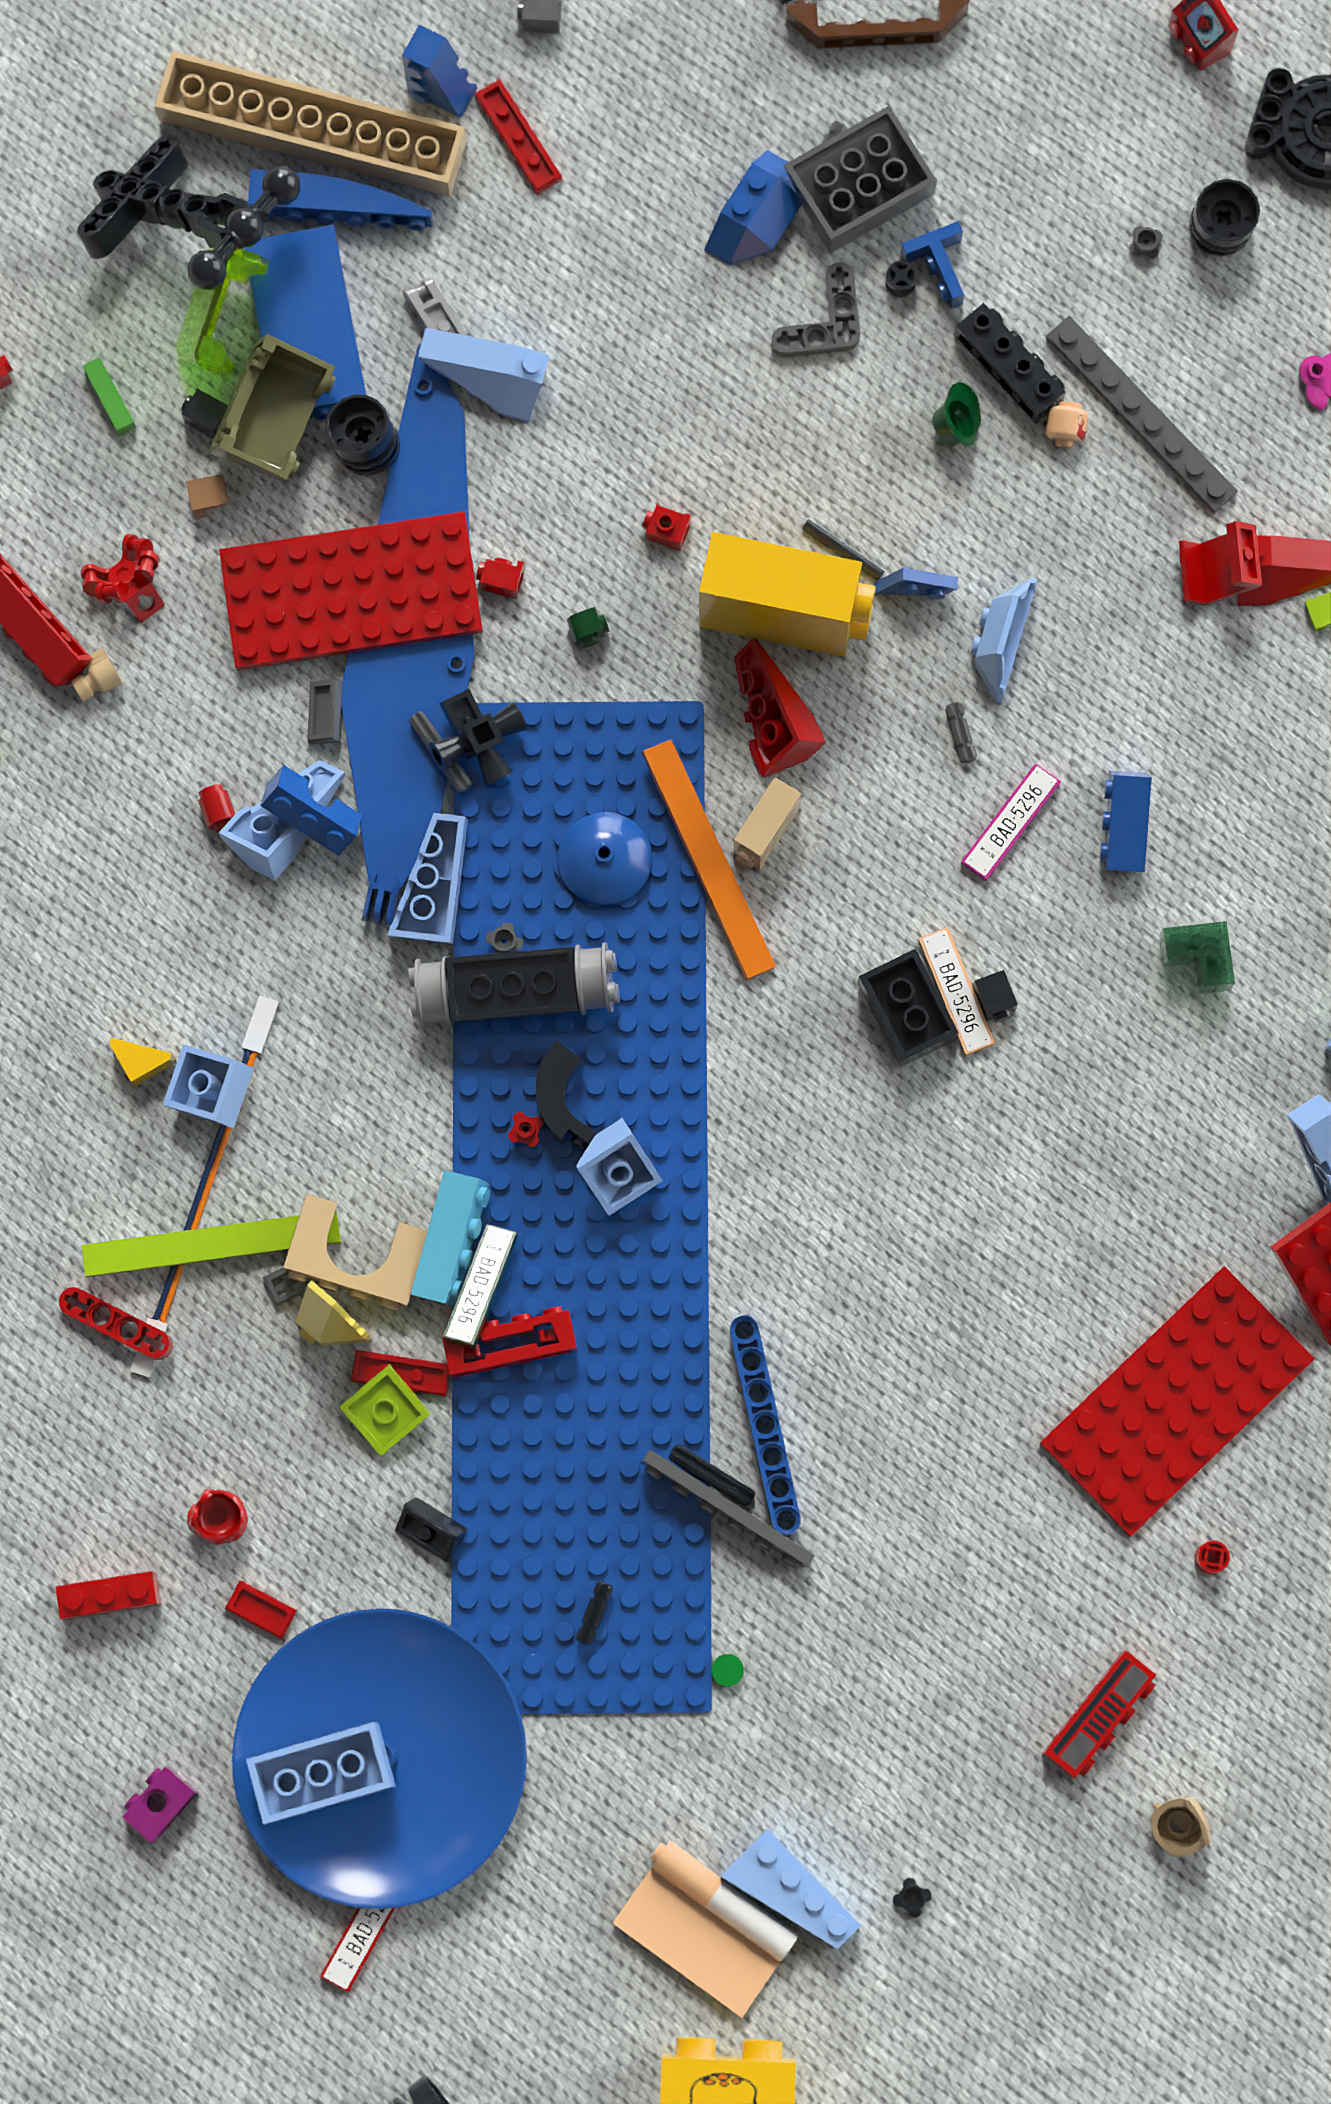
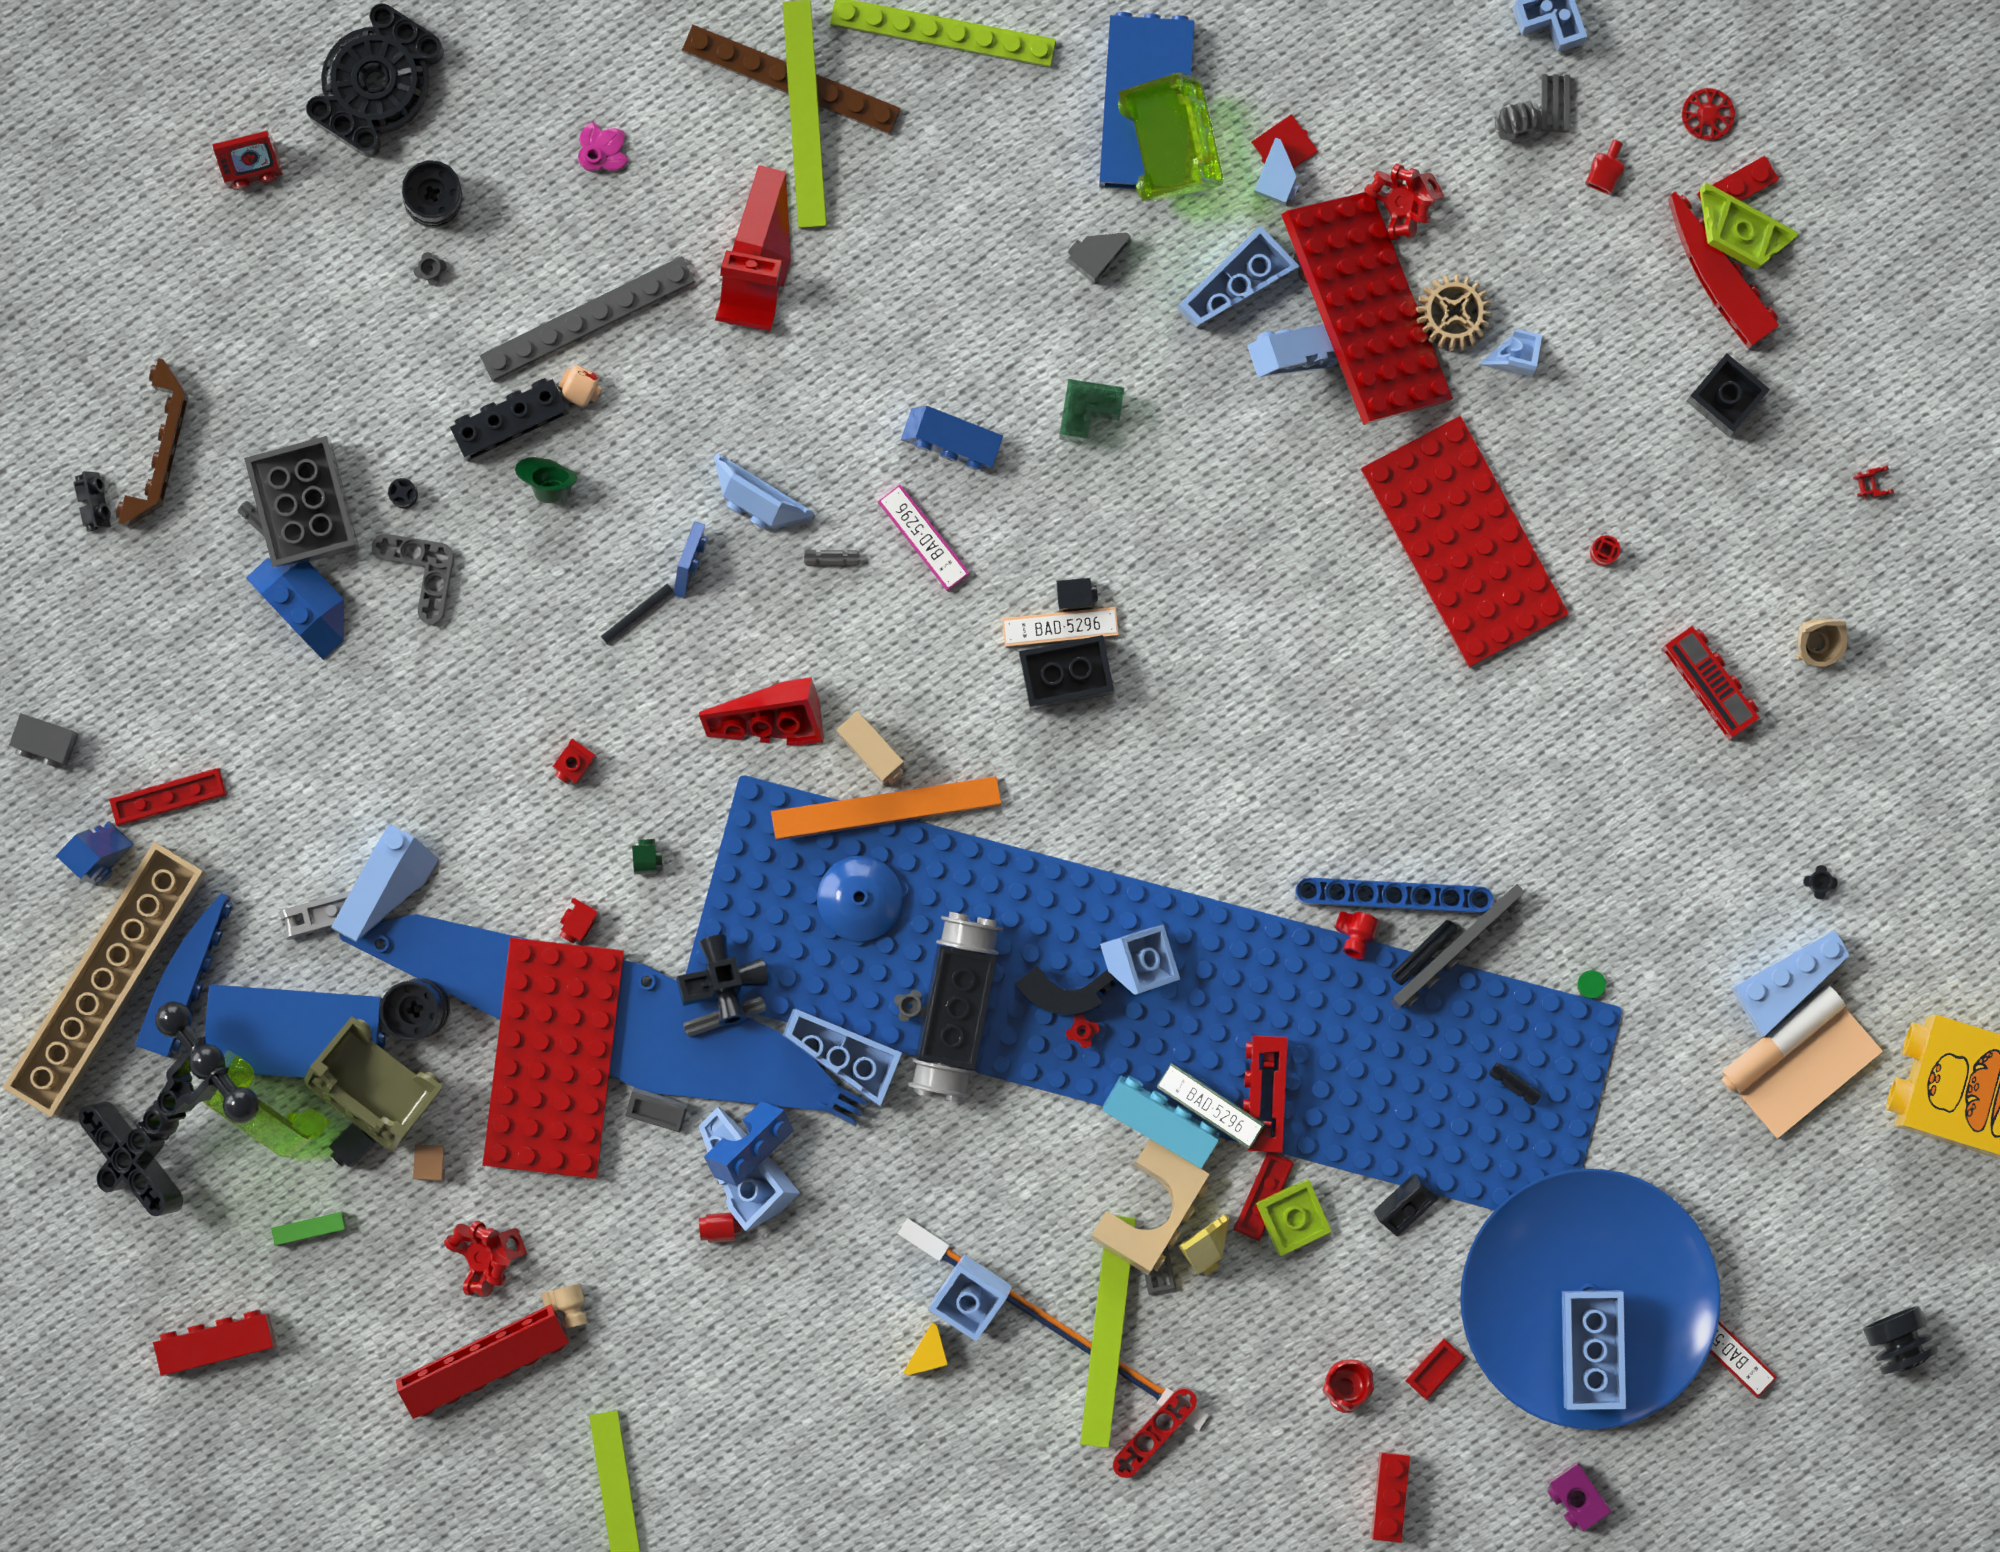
camera: 75 degrees left, 5 degrees up
(717, 1400) = (1361, 930): none -> red piece
(783, 595) = (675, 675): yellow brick -> none
(933, 245) = (397, 456): blue bracket -> none

